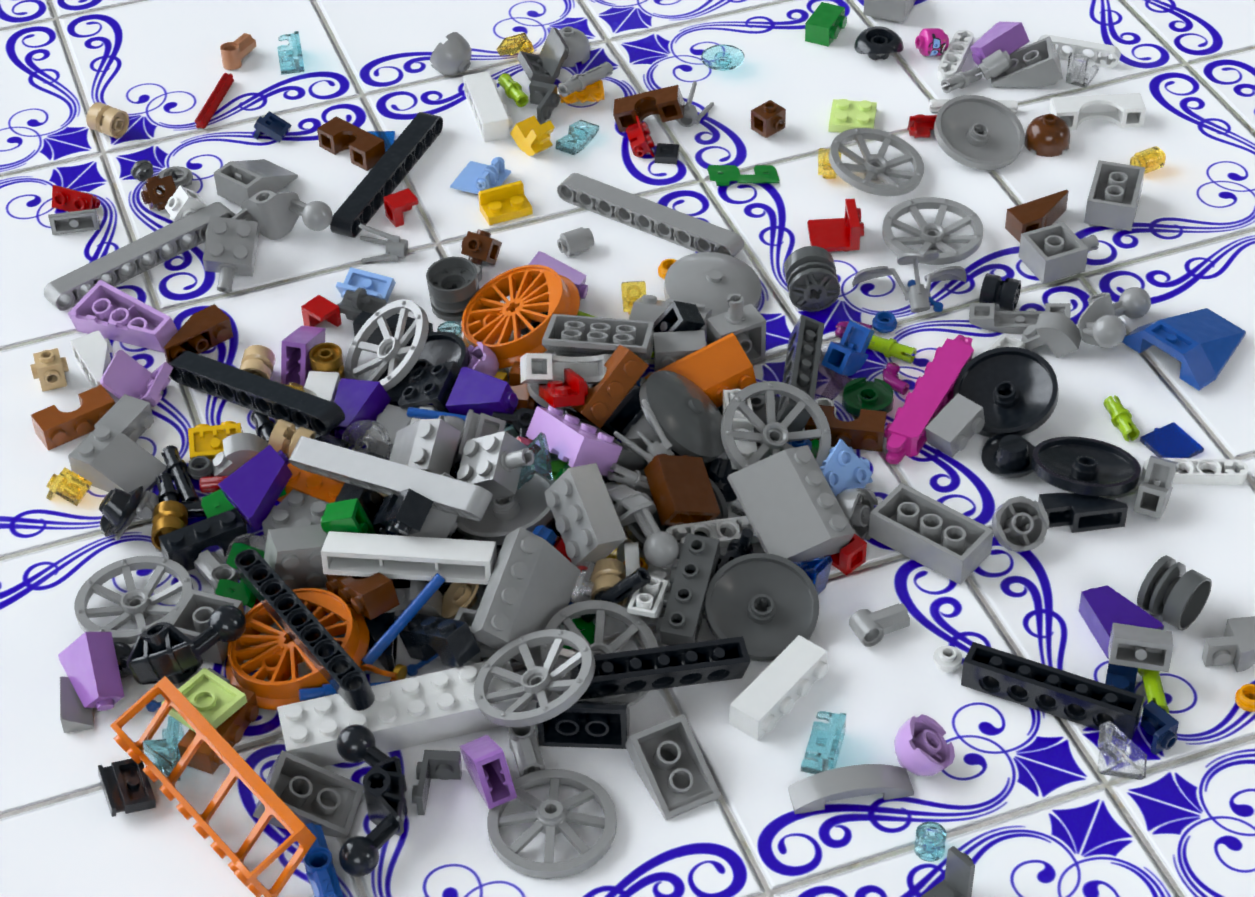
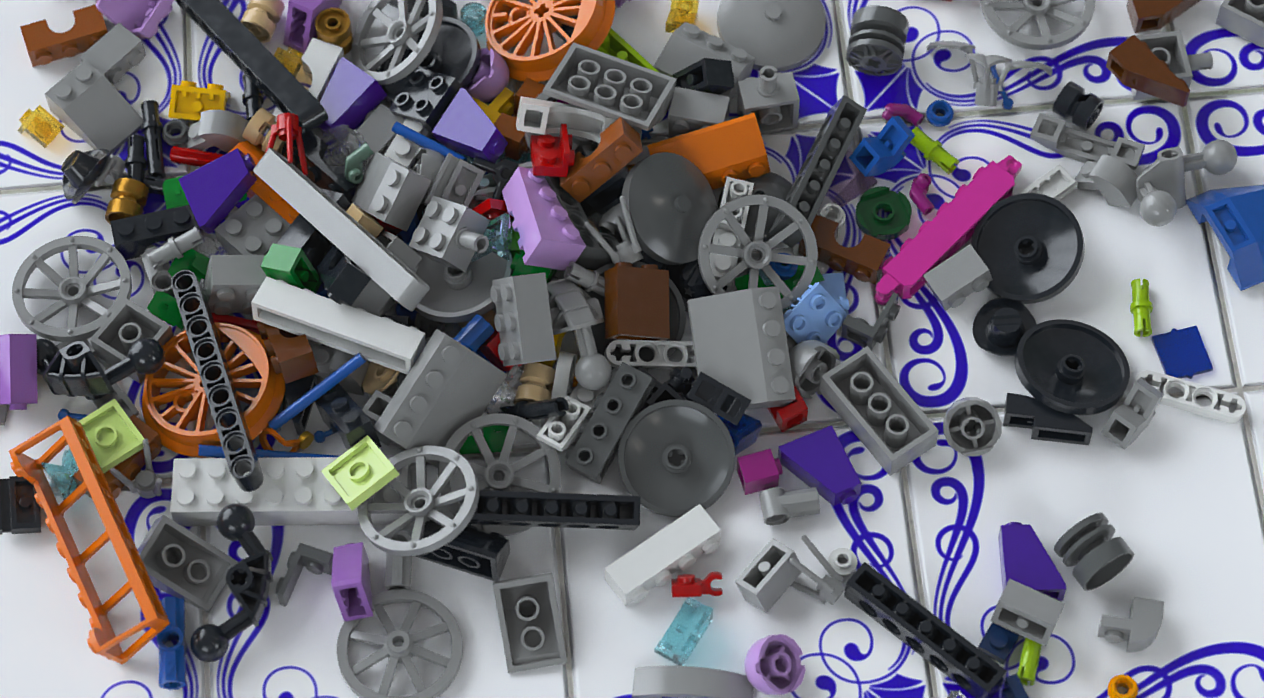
camera: 15 degrees right, 20 degrees up
(229, 541) = (175, 247): none -> light grey pin
(253, 740) = (146, 481): none -> light grey plant
(310, 426) = (288, 130): none -> red plant
(379, 443) = (354, 163): none -> sand green arm
(469, 668) = (360, 472): none -> yellowish green plate
(792, 546) = (719, 398): none -> black slope
(813, 704) = (688, 586): none -> red plate
(839, 603) = (758, 471): none -> magenta brick
(884, 481) = (860, 332): none -> dark grey bracket
(887, 678) = (768, 576): none -> light grey brick
(894, 582) = (823, 464): none -> dark purple slope
(946, 675) = (829, 588): none -> light grey plant
(1051, 248) = (1142, 70): none -> reddish brown slope

